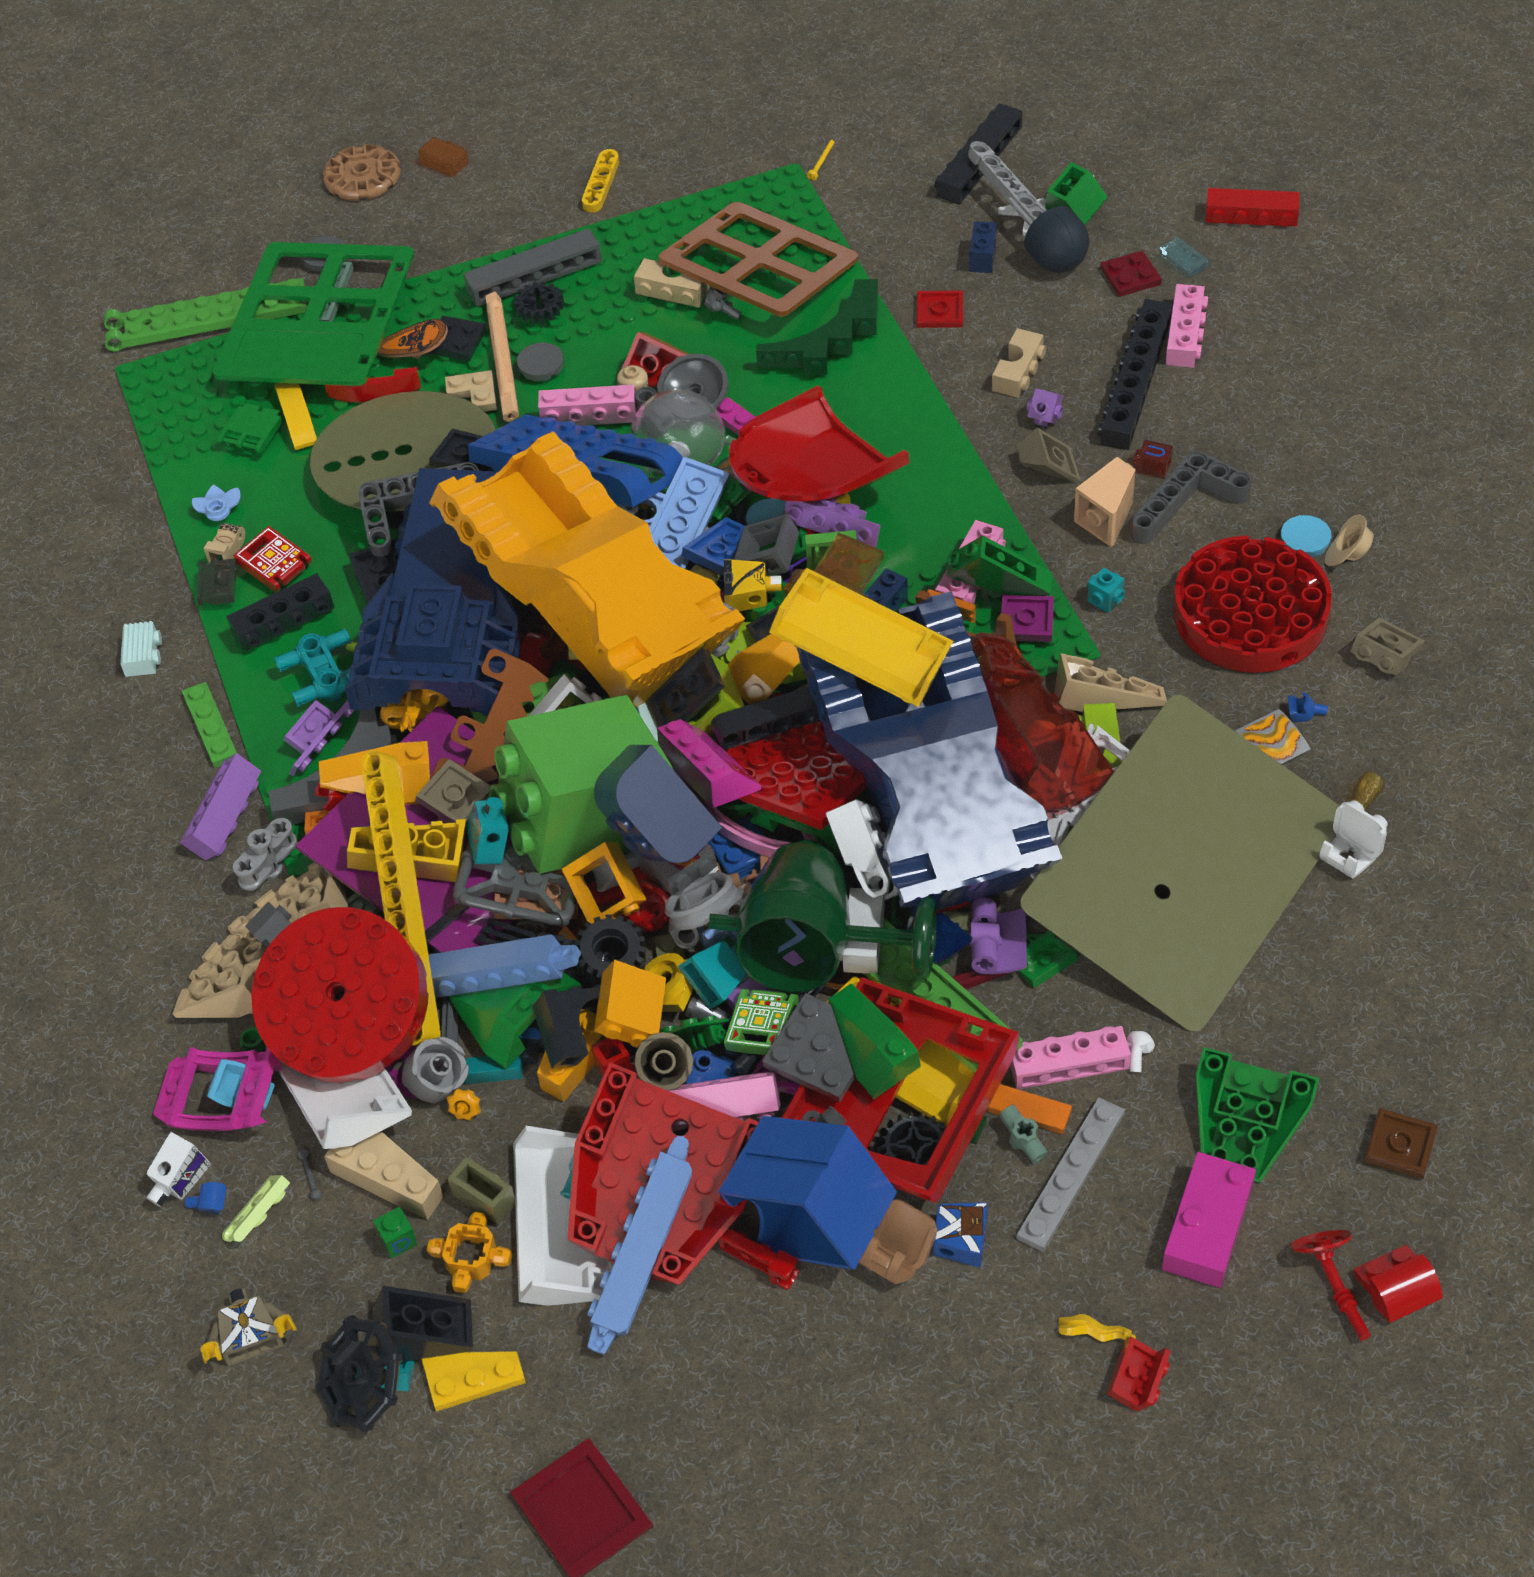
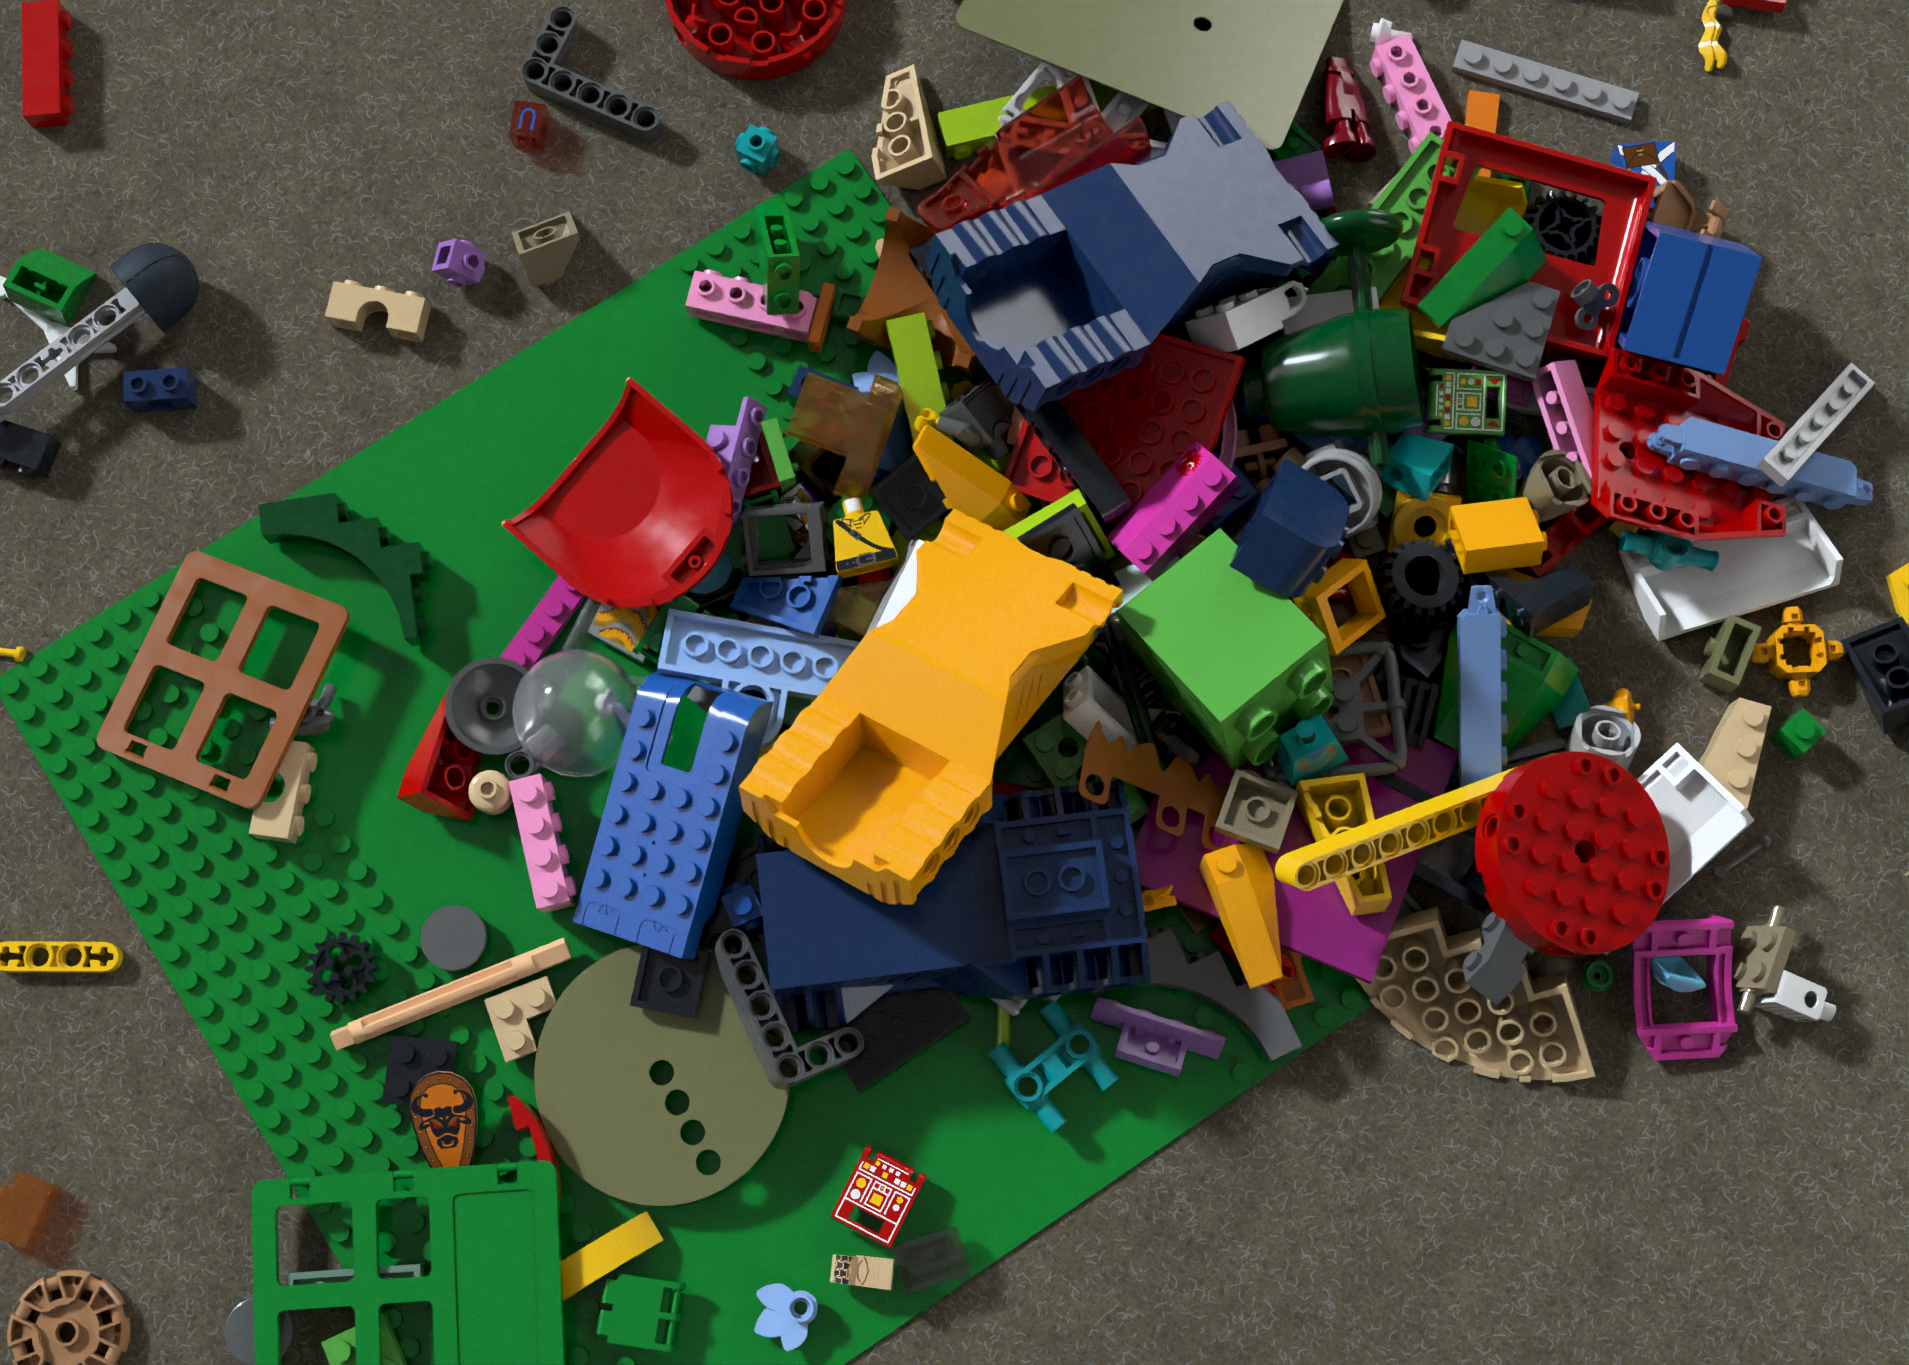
camera: 105 degrees left, 25 degrees up
(140, 649) = (1056, 1329): light aqua brick -> none
(209, 723) = (1154, 1193): bright green plate -> none
(210, 1198) = (1809, 950): blue piece -> none
(216, 1148) = (1761, 959): none -> dark tan plate
(221, 807) = (1292, 1123): medium lavender brick -> none
(255, 1210) = (1804, 896): yellowish green hinge -> none
(259, 858) = (1371, 1038): light grey axle -> none
(280, 612) = (945, 1104): black brick -> none
(533, 265) = (269, 997): dark grey brick -> none
(666, 1297) = (1815, 425): none -> light grey plate
(861, 636) = (1038, 315): yellow slope -> none
(939, 309) = (278, 431): red tile -> none
(1017, 1123) = (1523, 123): sand green axle -> none
(1030, 616) = (822, 229): magenta plate -> none
(1067, 998) = (1345, 114): none -> dark red piece
(1105, 500) = (621, 160): light nougat slope -> none
(1130, 273) = (184, 201): dark red plate -> none
(1135, 375) = (273, 149): black brick -> none
(1184, 256) = (148, 137): clear light blue plate -> none
(1185, 325) = (283, 118): bright pink brick -> none

